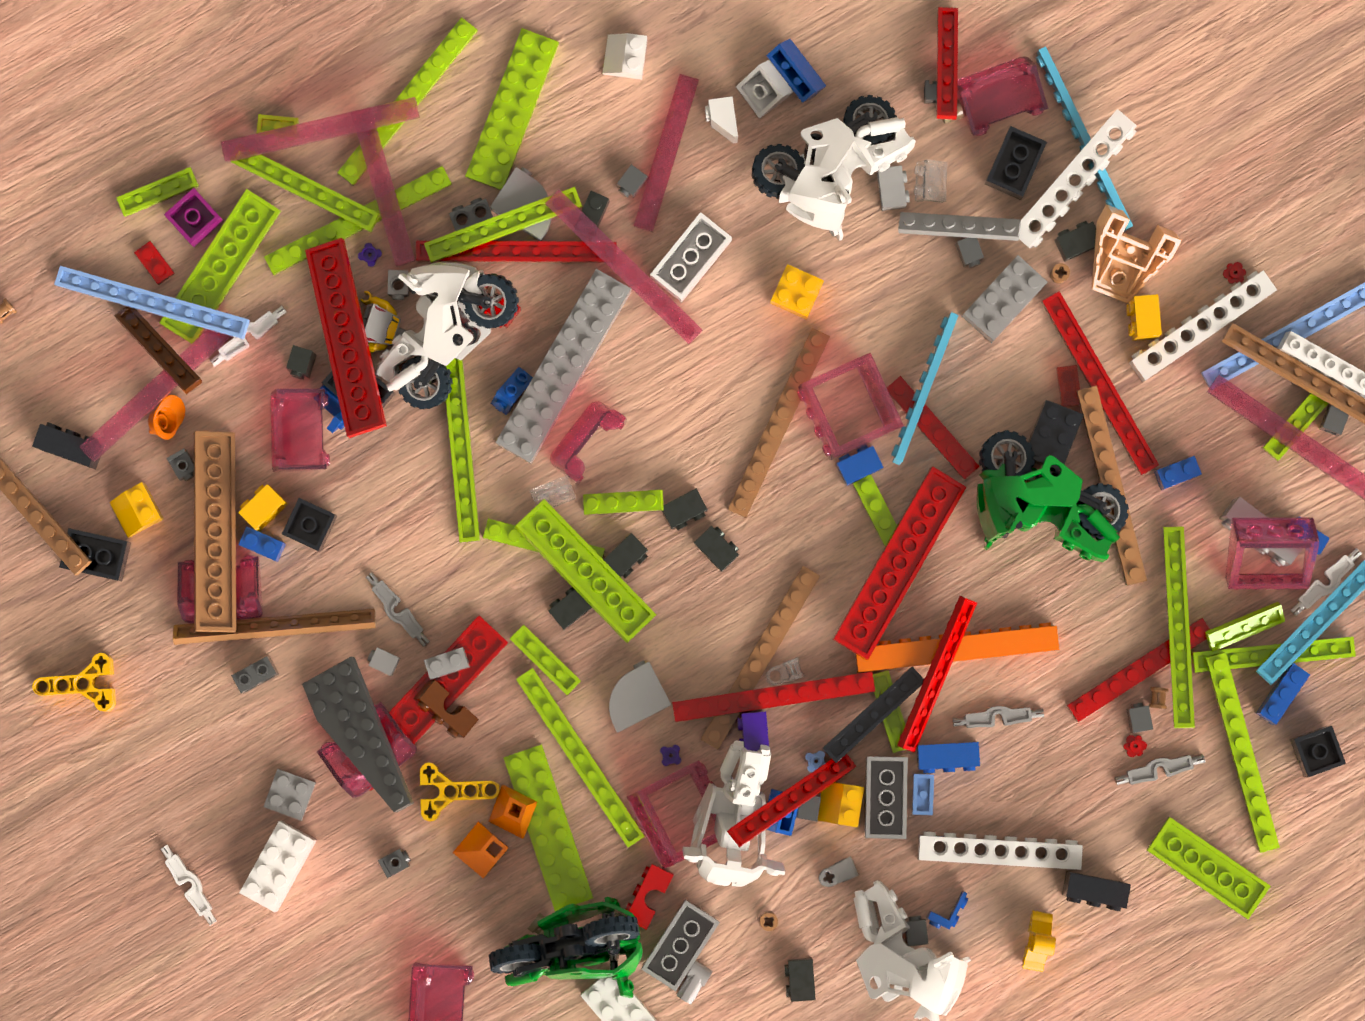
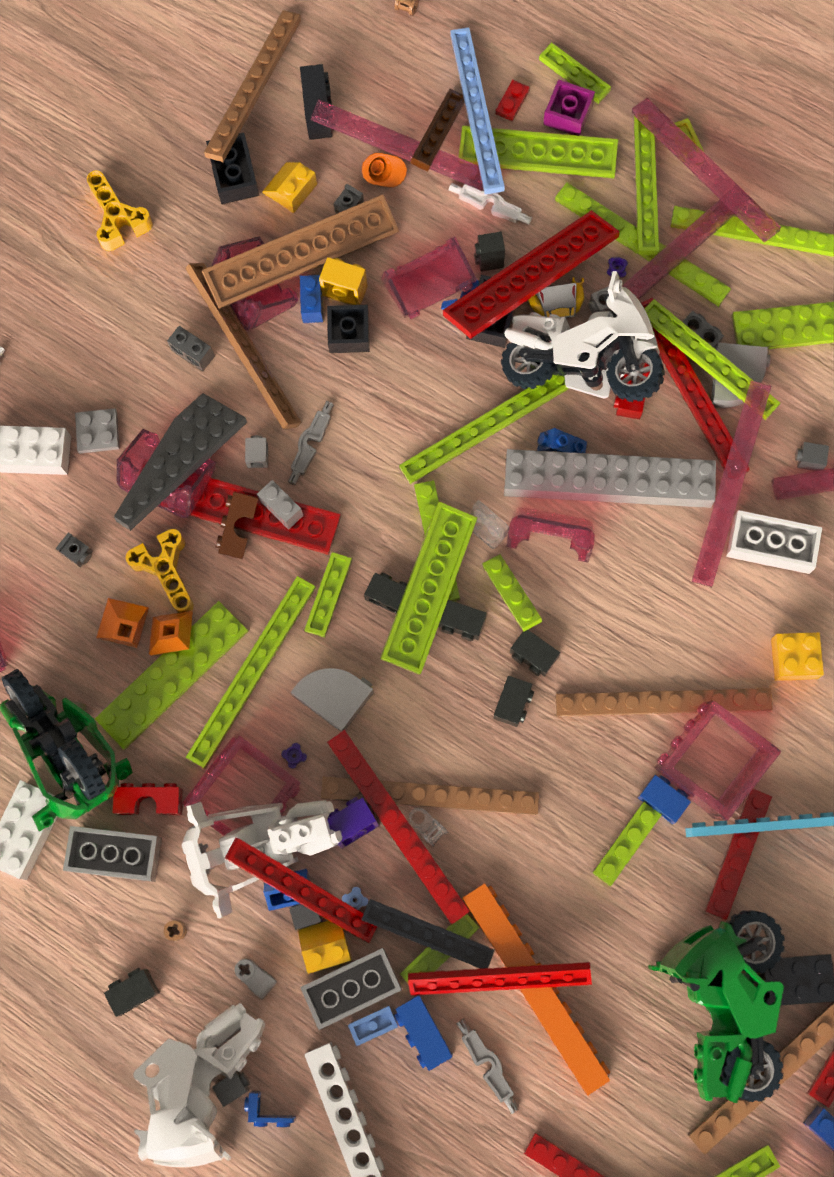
camera: 70 degrees right, 10 degrees down
(595, 207) = (771, 435): pearl dark grey brick -> none
(696, 978) = (87, 886): light grey piece -> none
(899, 563) = (590, 885): red plate -> none

